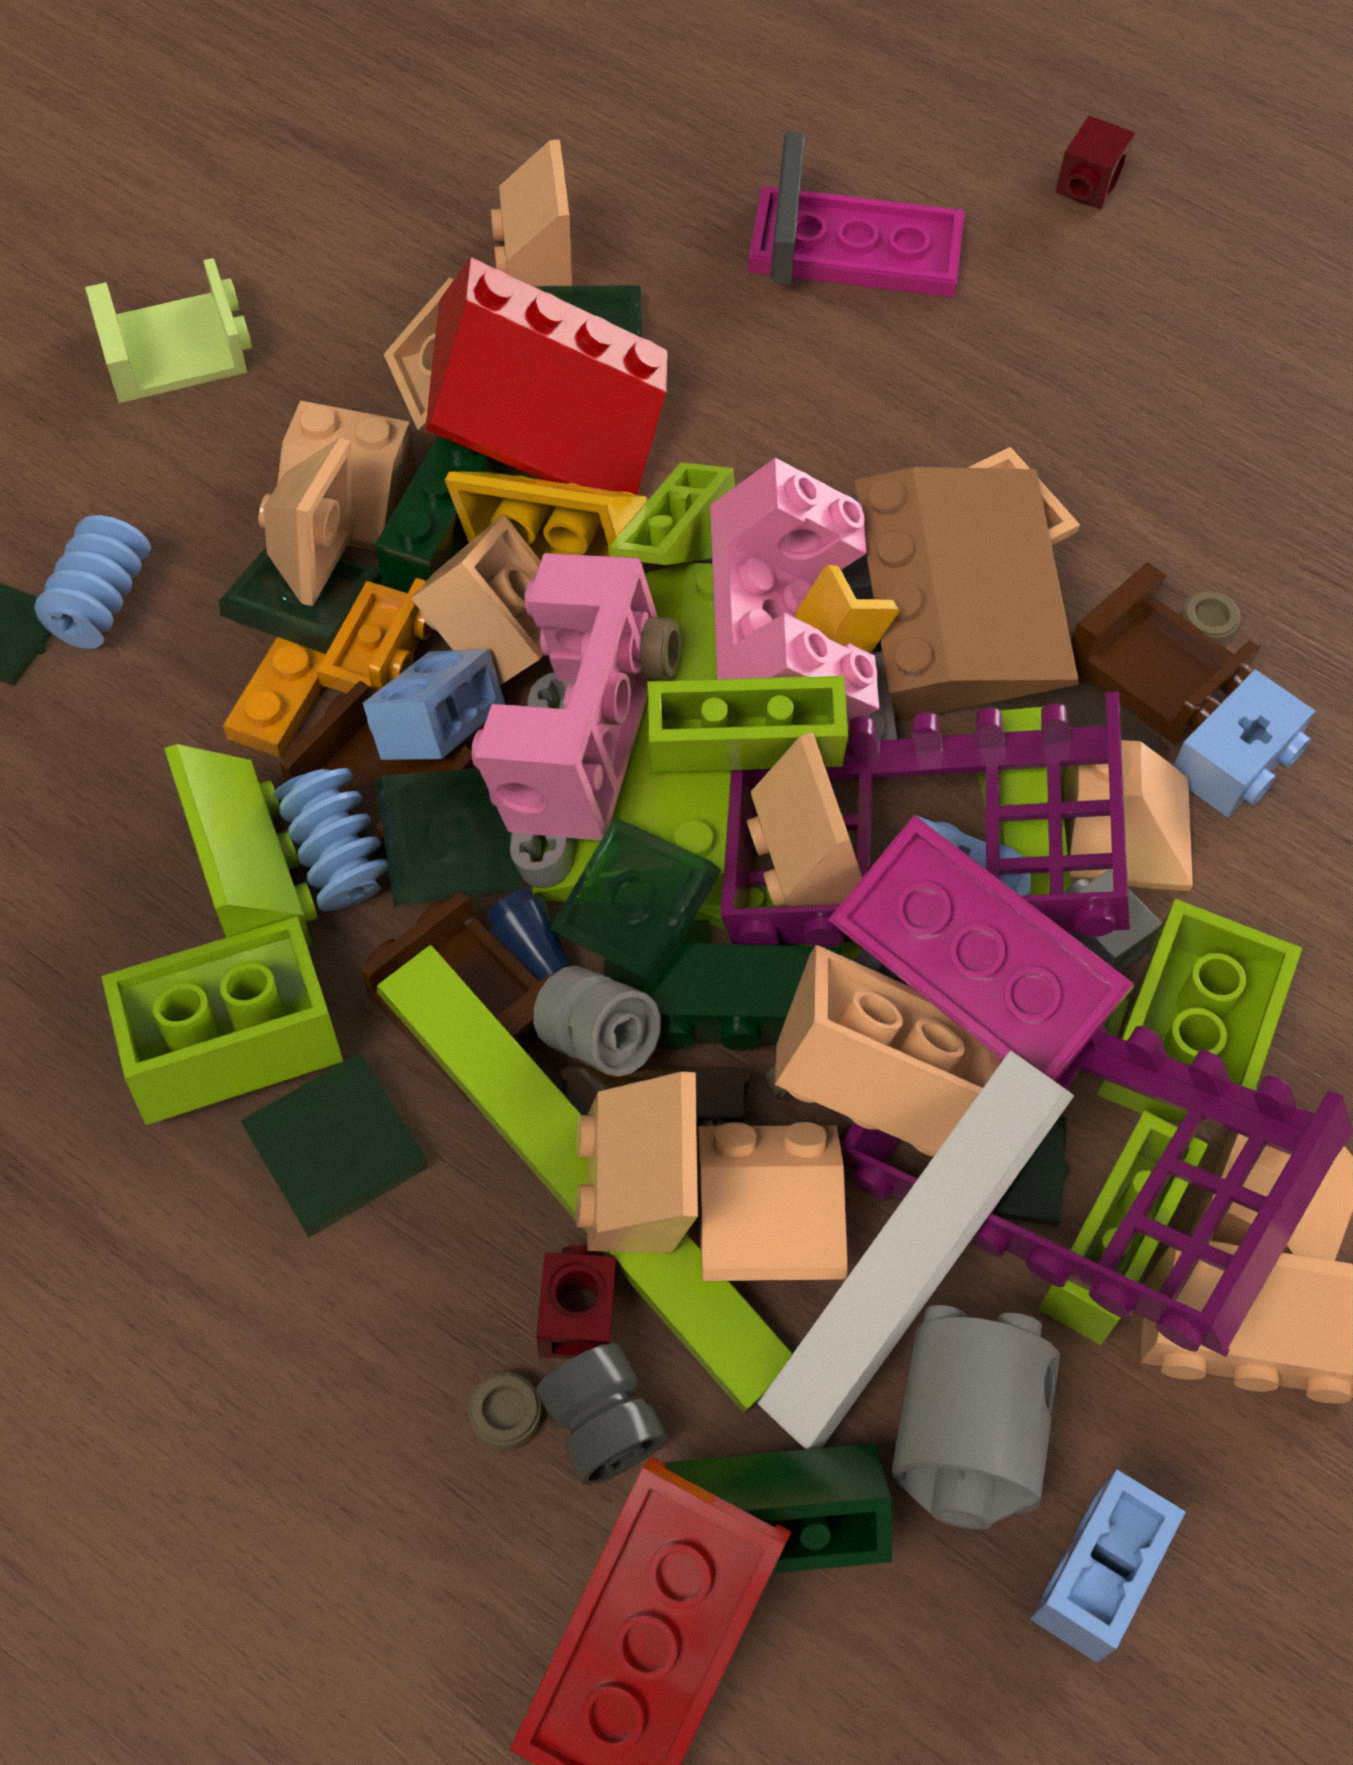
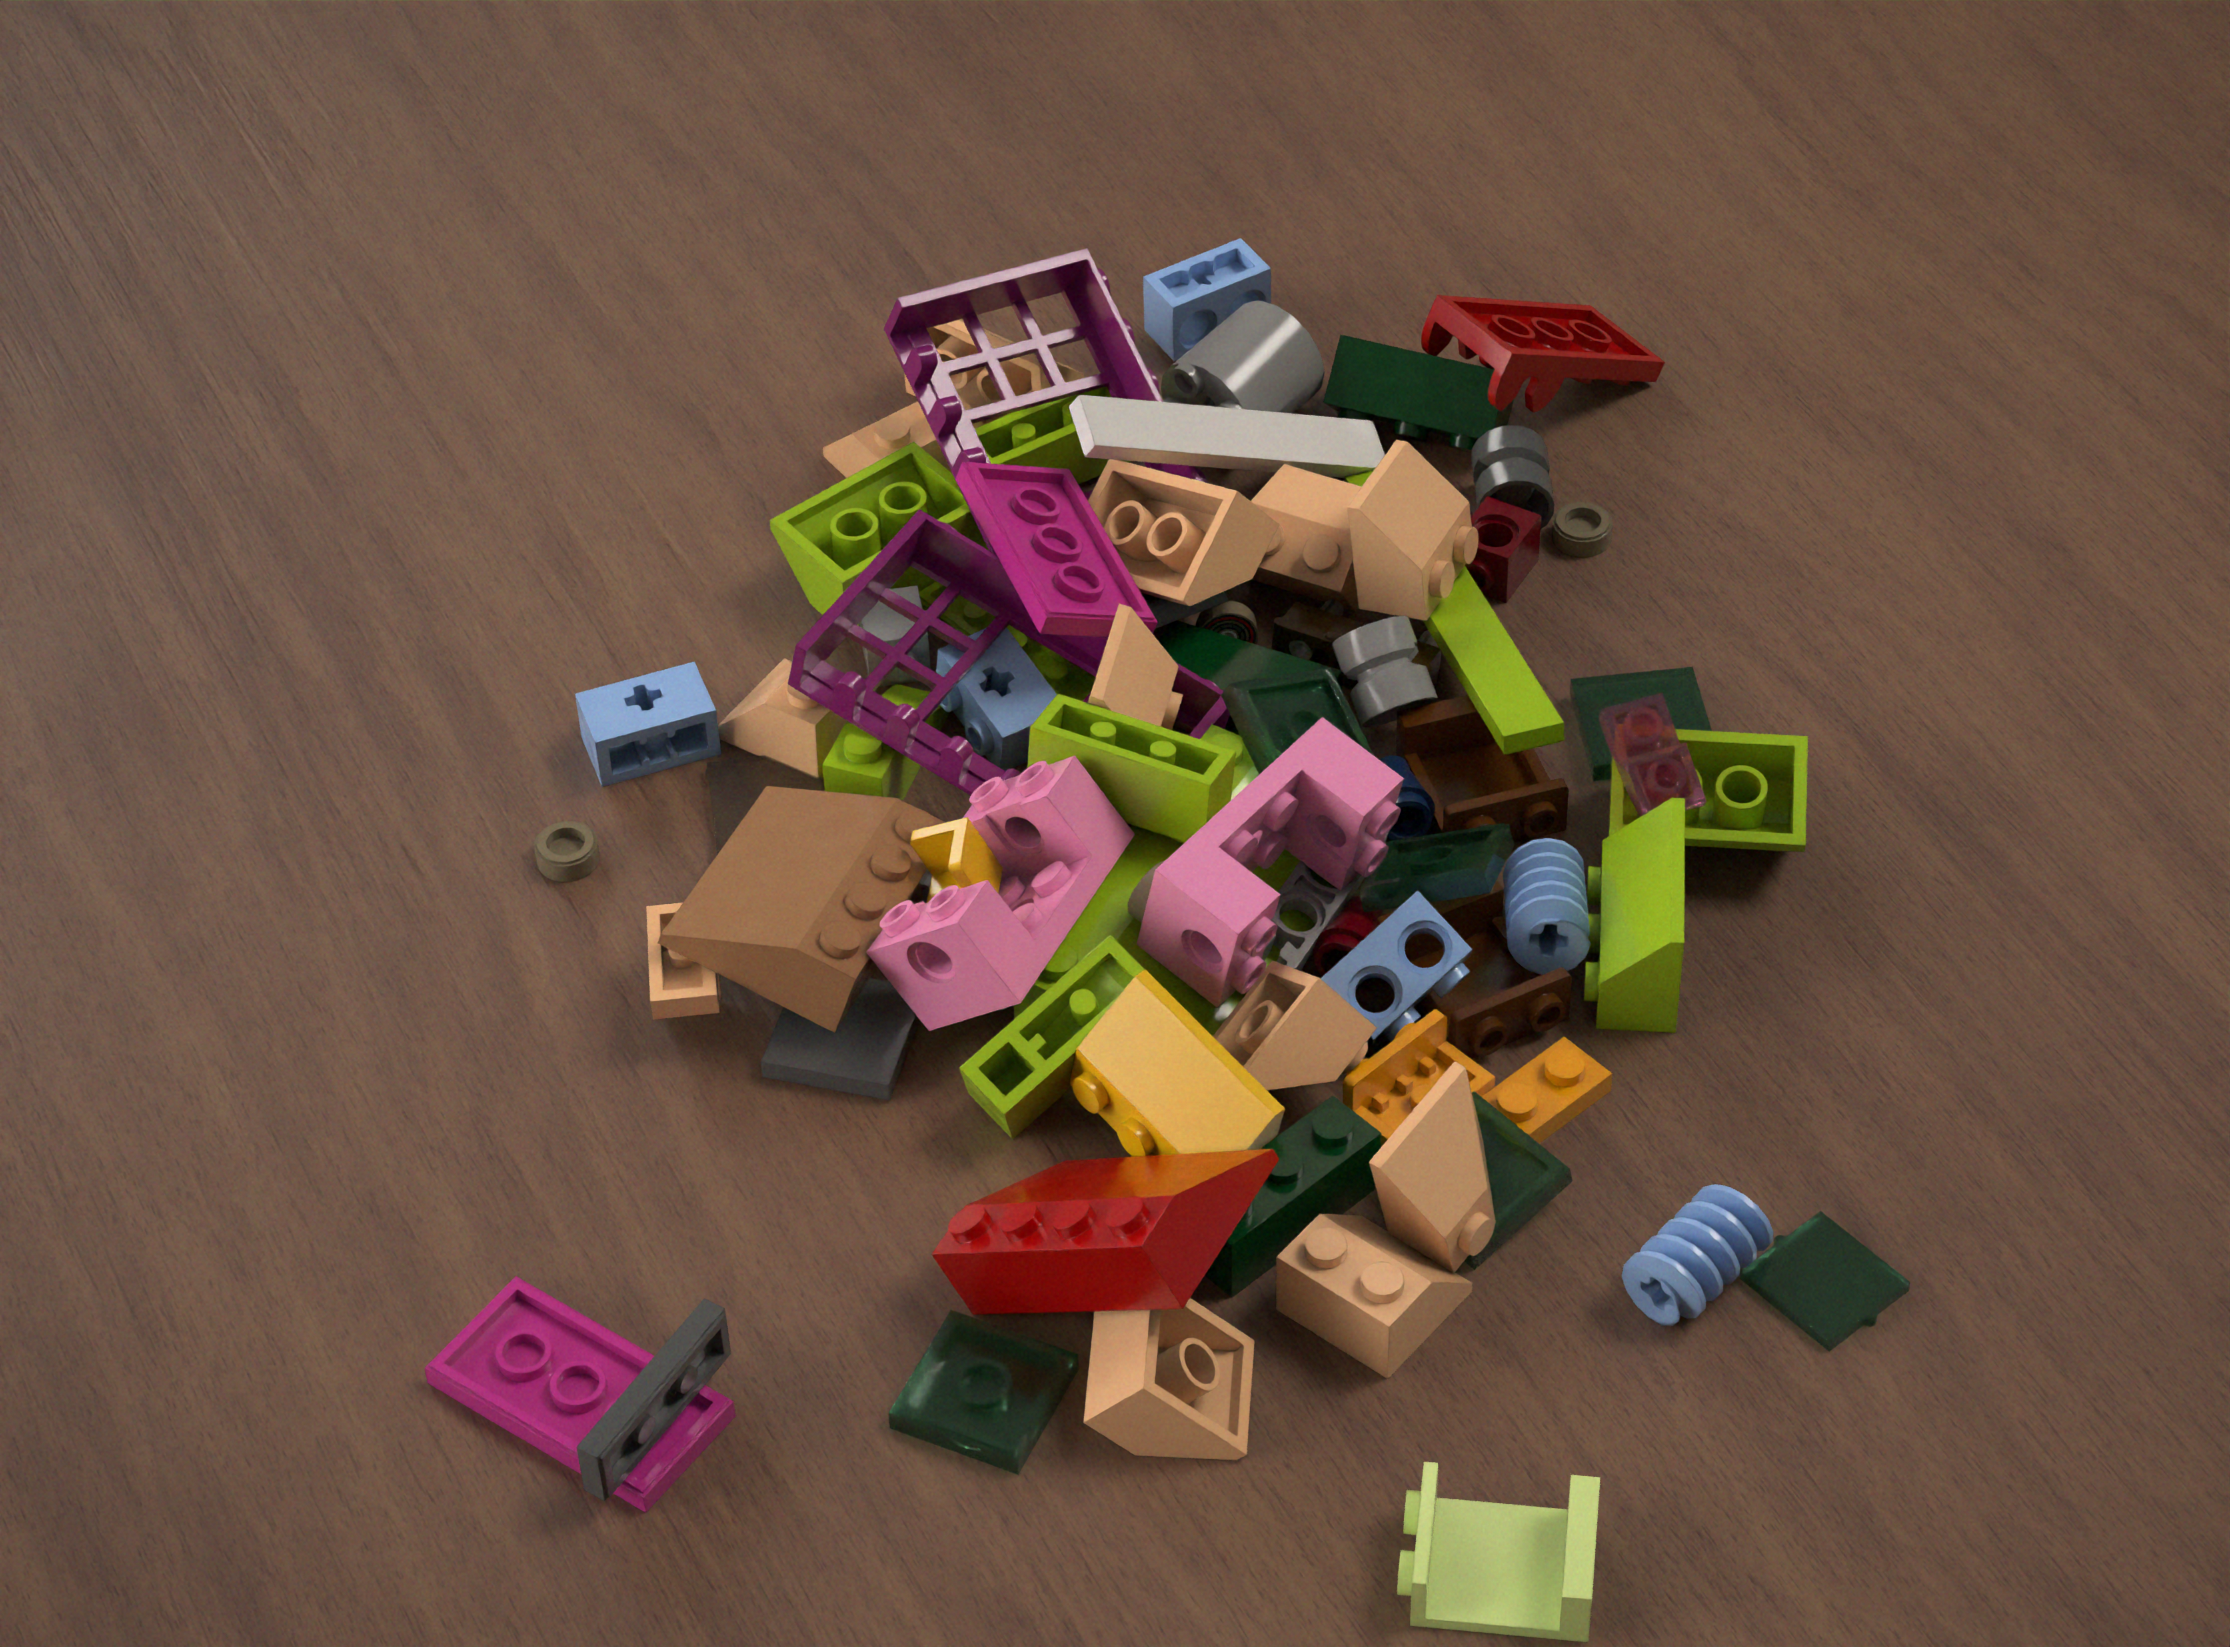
camera: 150 degrees left, 15 degrees down
(273, 978) = (1650, 754): none -> clear pink slope
(535, 221) = (980, 1493): light nougat slope -> none
(1095, 162) = (219, 1358): dark red brick -> none
(1156, 658) = (651, 810): reddish brown panel -> none

